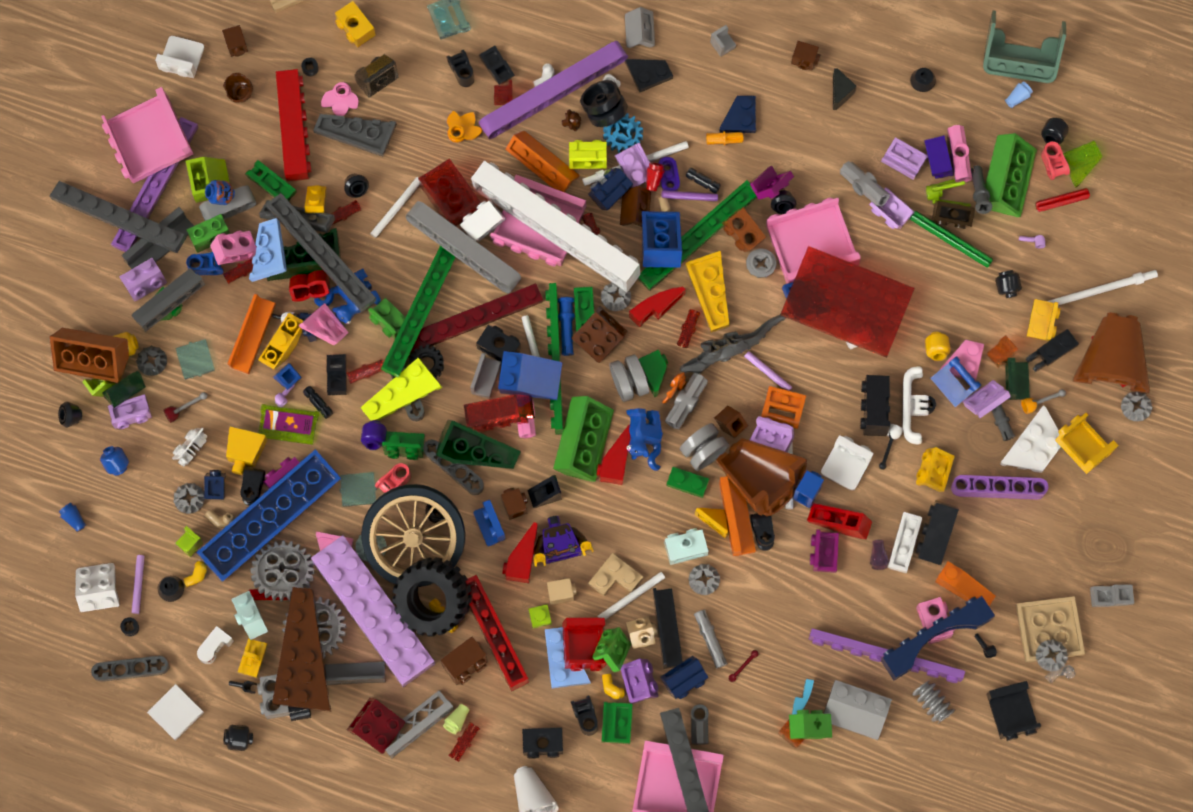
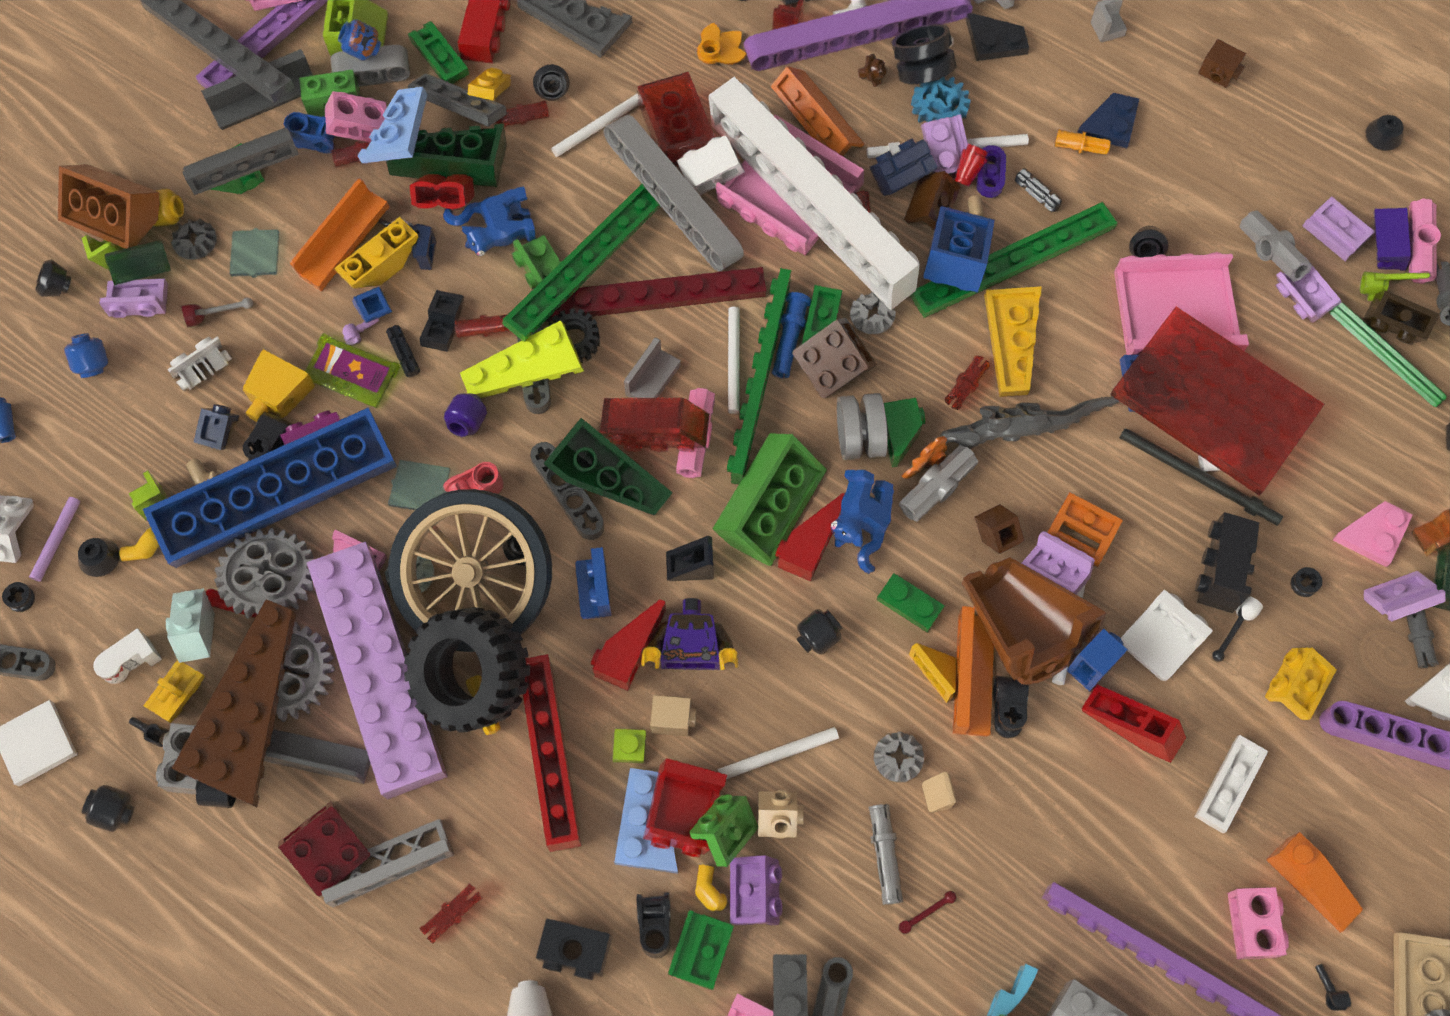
camera: 15 degrees right, 5 degrees down
(143, 279) = (220, 131): lavender bracket -> none
(196, 502) = (181, 444): light grey gear -> none
(321, 252) = (470, 147): dark grey plate -> none
(324, 325) = (444, 247): bright pink wing -> none
(404, 445) = (503, 440): green bracket -> none
(456, 719) = (450, 873): yellowish green cone -> none
(464, 661) = (489, 784): reddish brown brick -> none
(493, 334) = (691, 350): black brick -> none
(514, 503) = (640, 564): reddish brown brick -> none
(529, 376) = (715, 384): blue slope -> none
(588, 155) = (883, 117): neon yellow brick -> none
(615, 571) = (764, 707): tan plate -> none
(636, 516) = (819, 631): none -> black head
(656, 305) = (928, 338): red slope -> none
(667, 628) = (822, 819): black panel -> none
(684, 678) = (828, 906): dark blue brick -> none
(686, 546) = (883, 698): light aqua brick -> none
(689, 195) = (1014, 204): medium lavender bar -> none
(704, 446) = (949, 554): light grey wheel -> none
(733, 594) = (939, 792): none -> tan slope
(747, 226) = (1089, 263): dark orange brick -> none
(760, 255) = (1096, 308): light grey gear -> none
(766, 370) = (1071, 472): lavender bar -> none
(770, 183) = (1134, 212): magenta bracket -> none
(825, 551) = (1100, 764): magenta bracket -> none
(842, 88) = (1267, 116): pearl dark grey slope -> none
(878, 555) = (1185, 793): cone -> none
(883, 363) = (1251, 504): none -> pearl dark grey bar
(912, 404) = (1285, 576): white piece -> none
(937, 346) = (1340, 499): yellow head -> none
(937, 532) = (1289, 781): black wedge -> none
(951, 386) = (1350, 563): plate -> none
(972, 616) = (1198, 975): dark blue arch -> none

